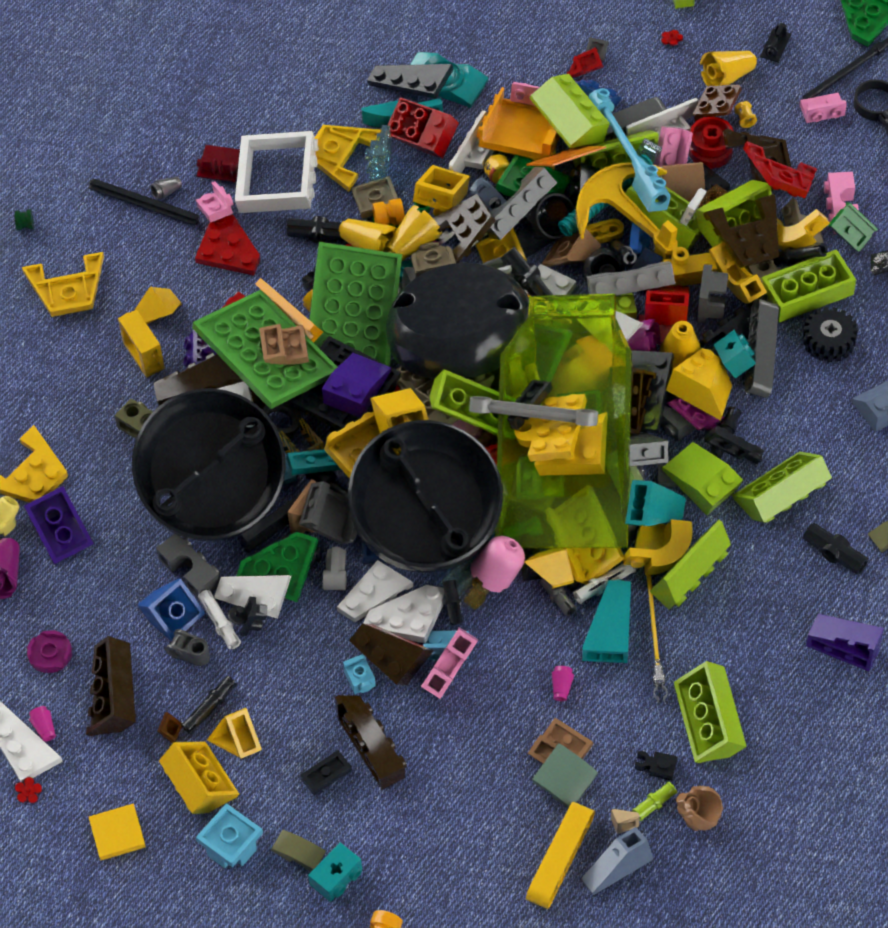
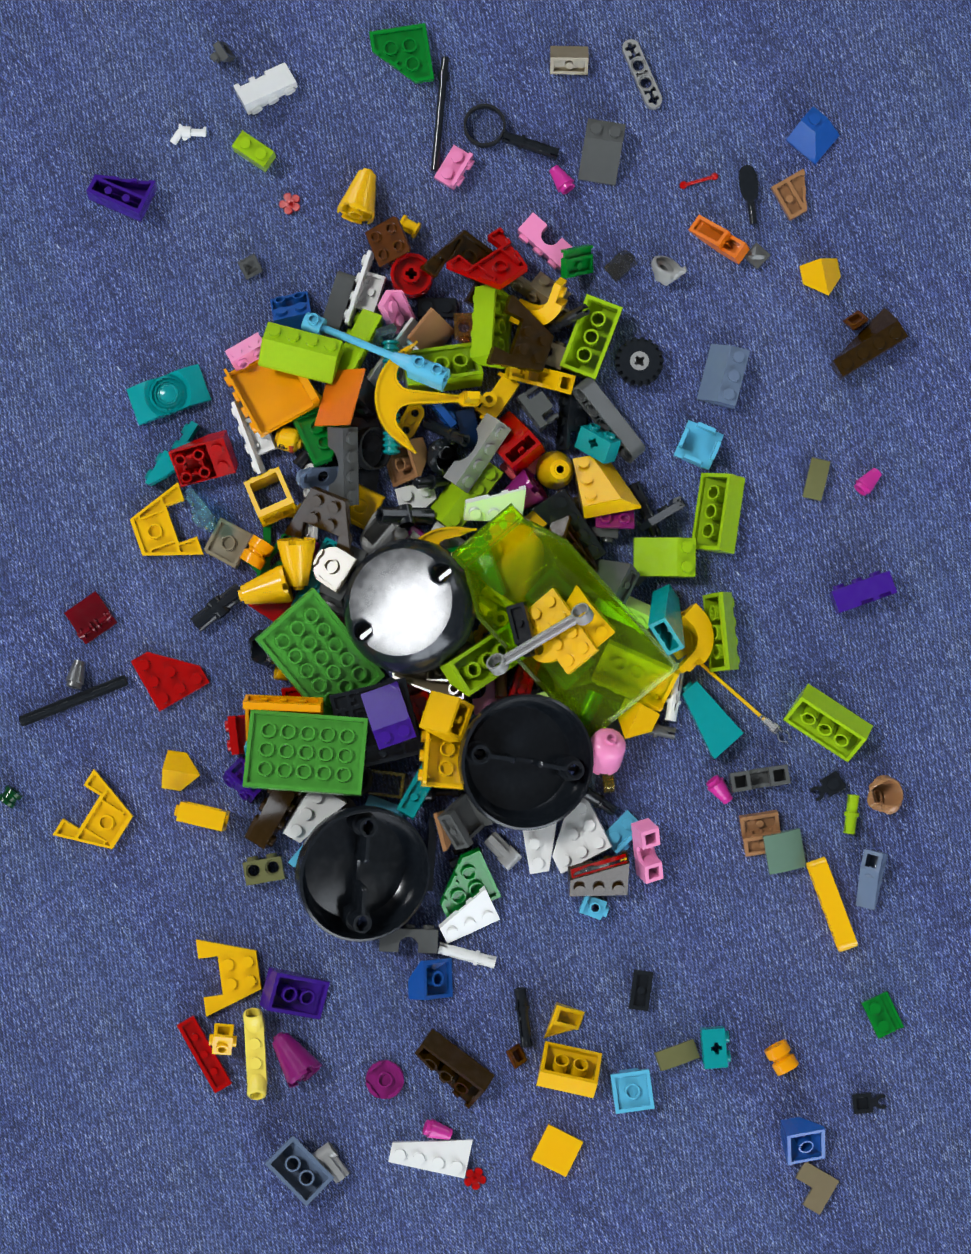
camera: 45 degrees left, 30 degrees up
(184, 648) = (468, 994): dark grey piece -> none
(215, 205) = (128, 659): bright pink bracket -> none
(250, 616) = (487, 939): black hips -> none
(281, 201) = (120, 613): white window -> none
(284, 345) = (318, 740): medium nougat slope -> none
(370, 740) = (647, 944): dark brown wedge -> none
(419, 80) = (155, 419): wing -> none
(573, 276) = (430, 482): none -> black axle
(585, 63) = (254, 287): red slope -> none
(590, 692) = (759, 778): none -> dark grey arch
(624, 820) = (847, 846): tan slope -> none
(693, 205) = (461, 352): white tile -> none
(776, 43) = (369, 140): black hinge -> none
(818, 427) = (699, 444): none -> medium azure panel
(835, 548) = (793, 527): black piece -> none

